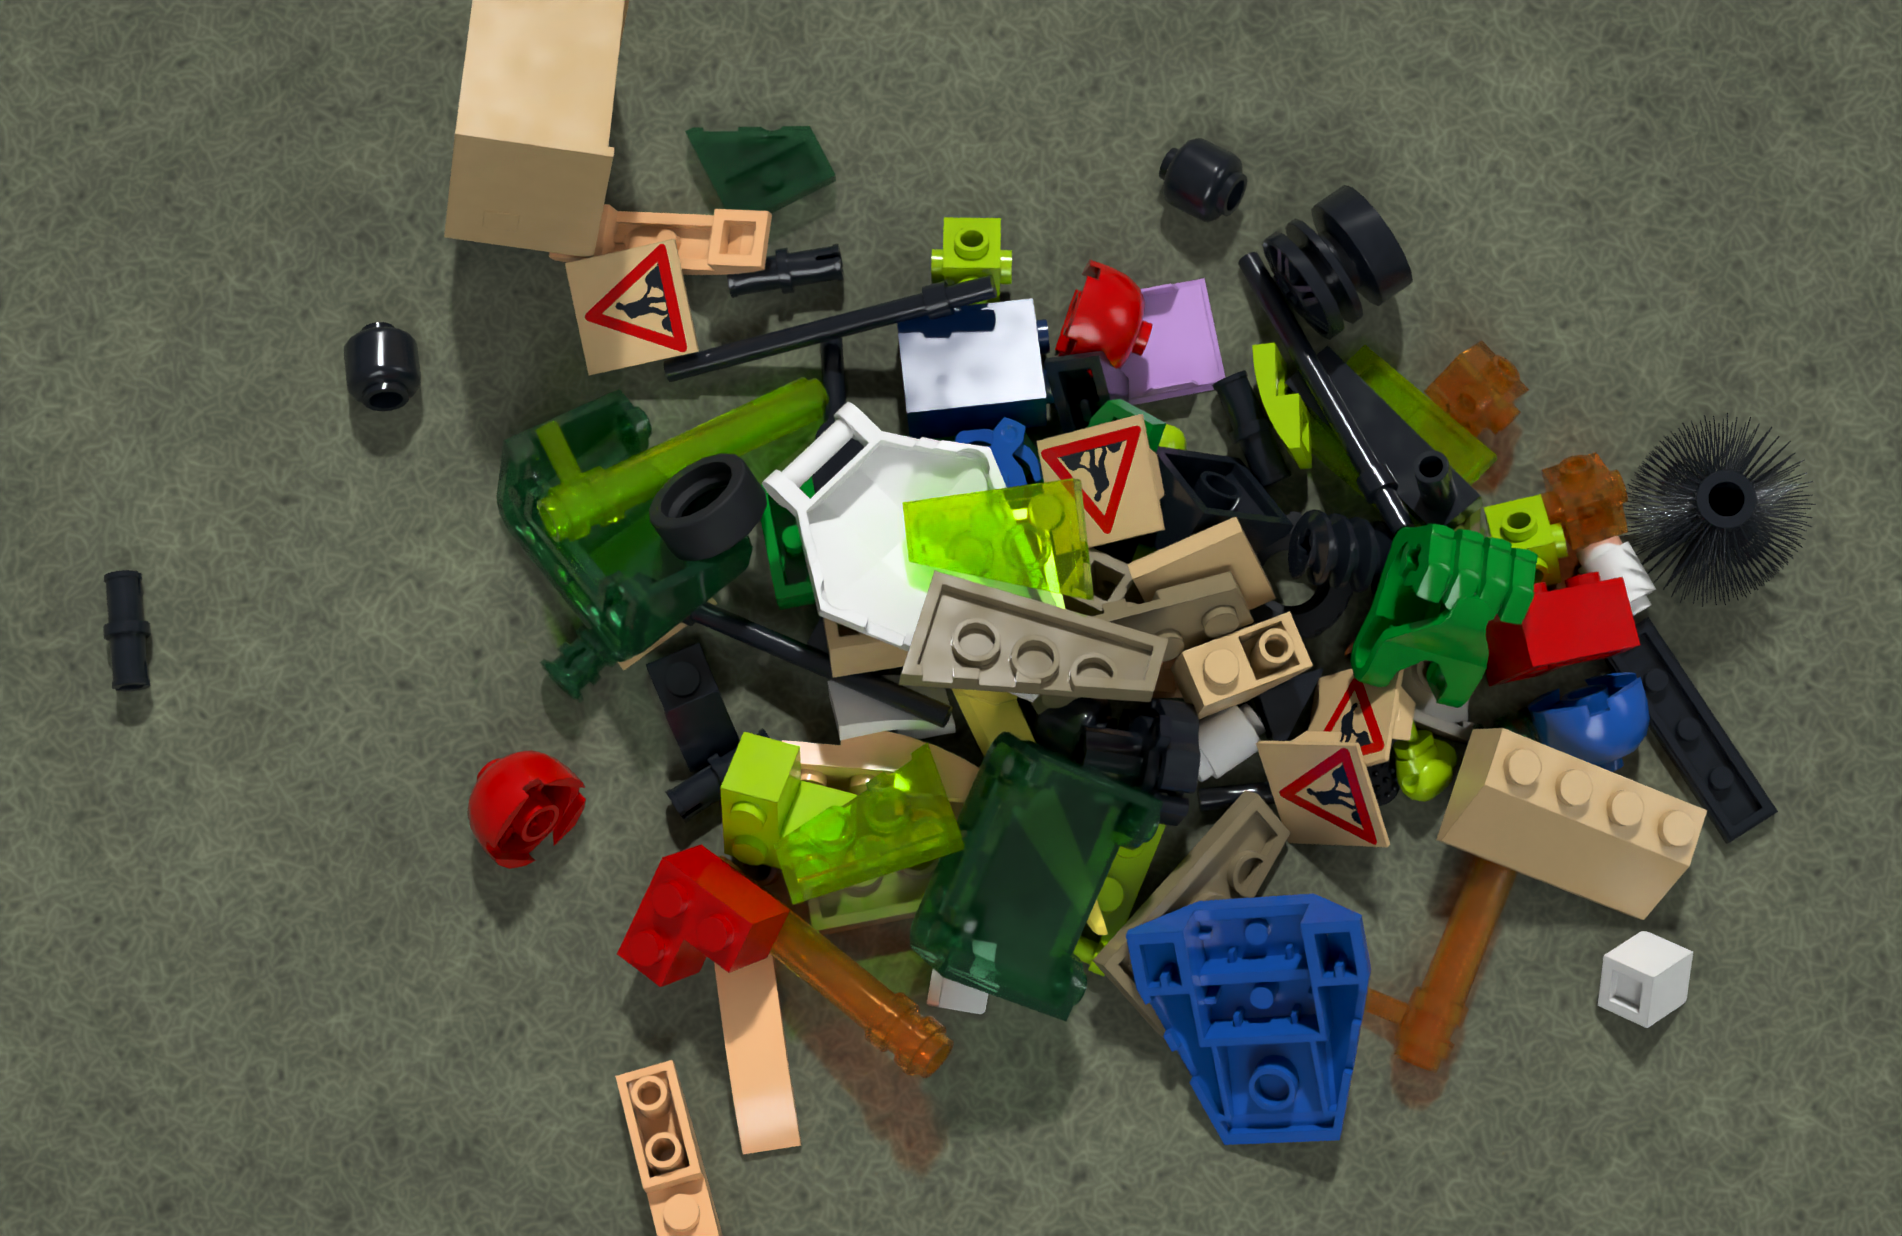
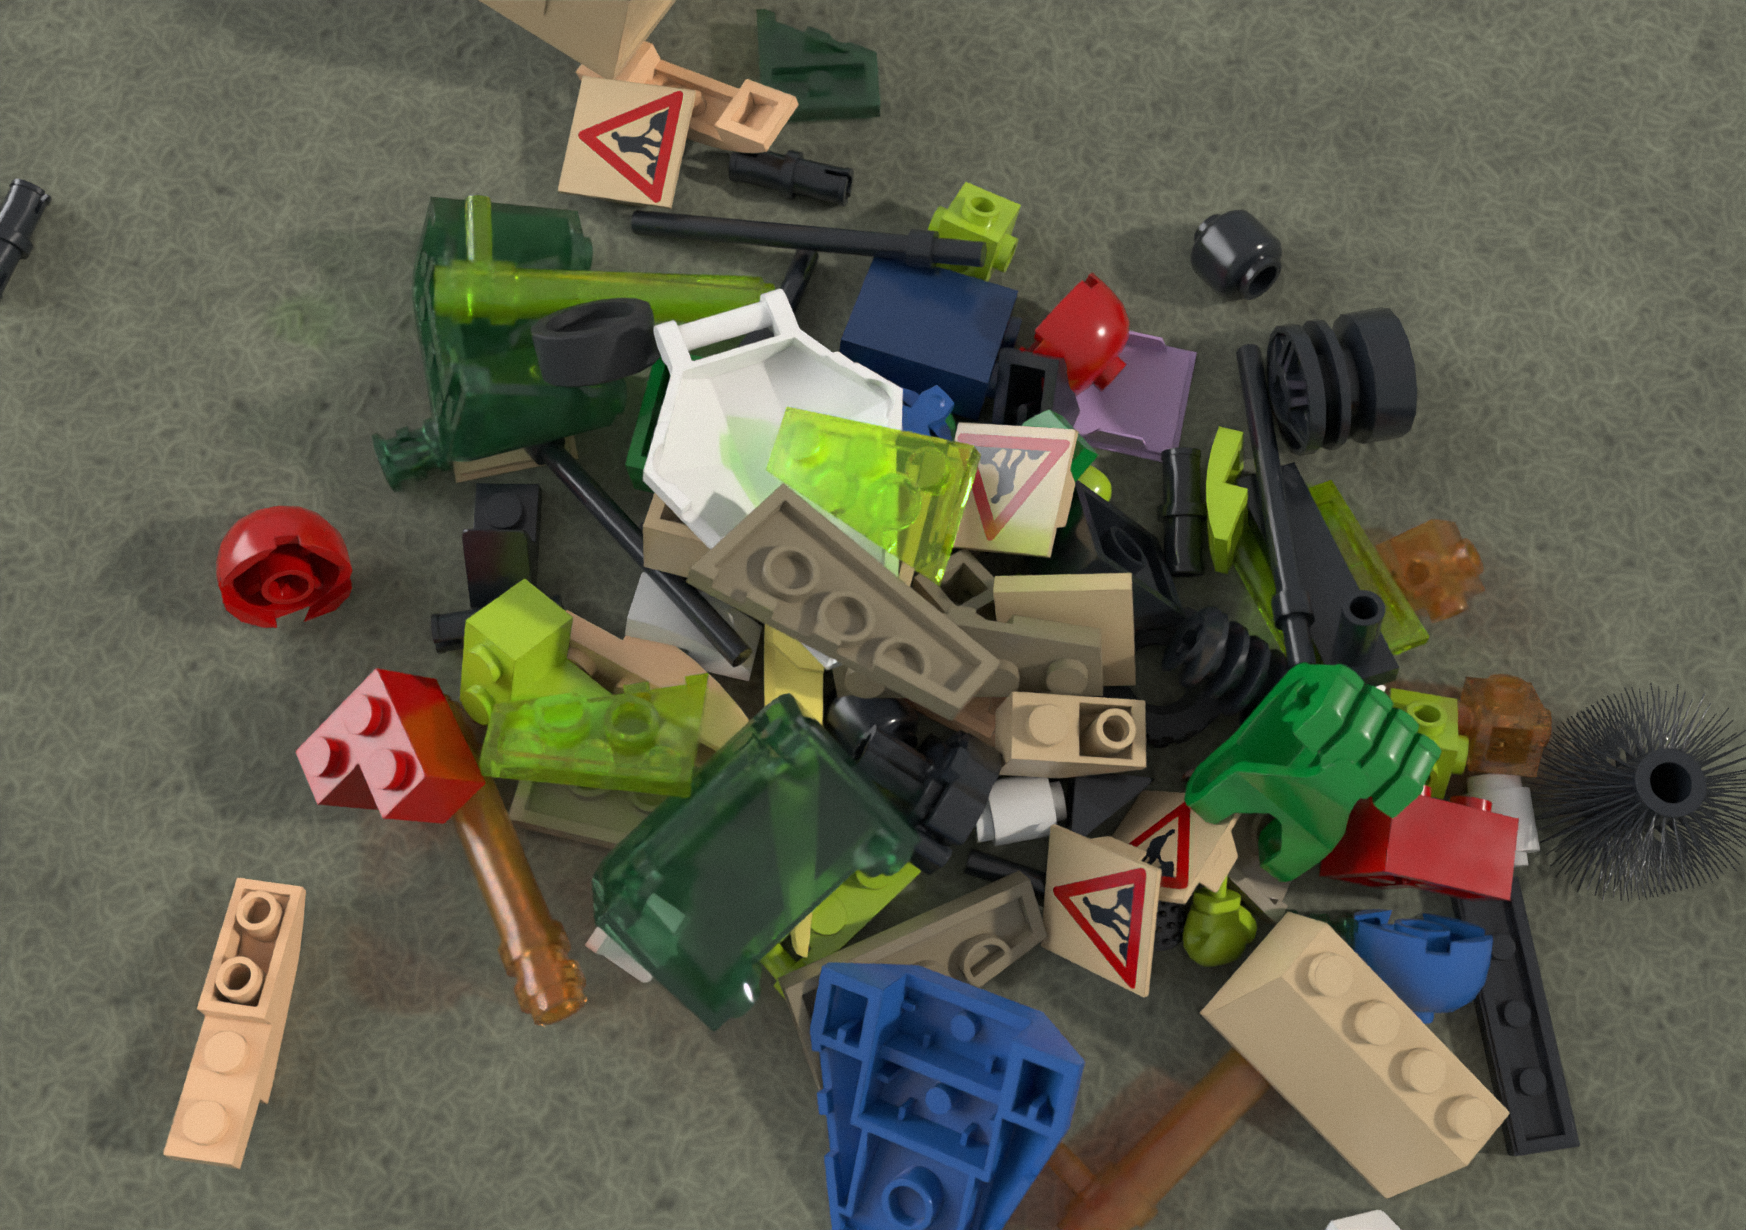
camera: 20 degrees right, 5 degrees down
(382, 366) = (367, 101): black head -> none
(757, 1057) = (390, 924): light nougat slope -> none

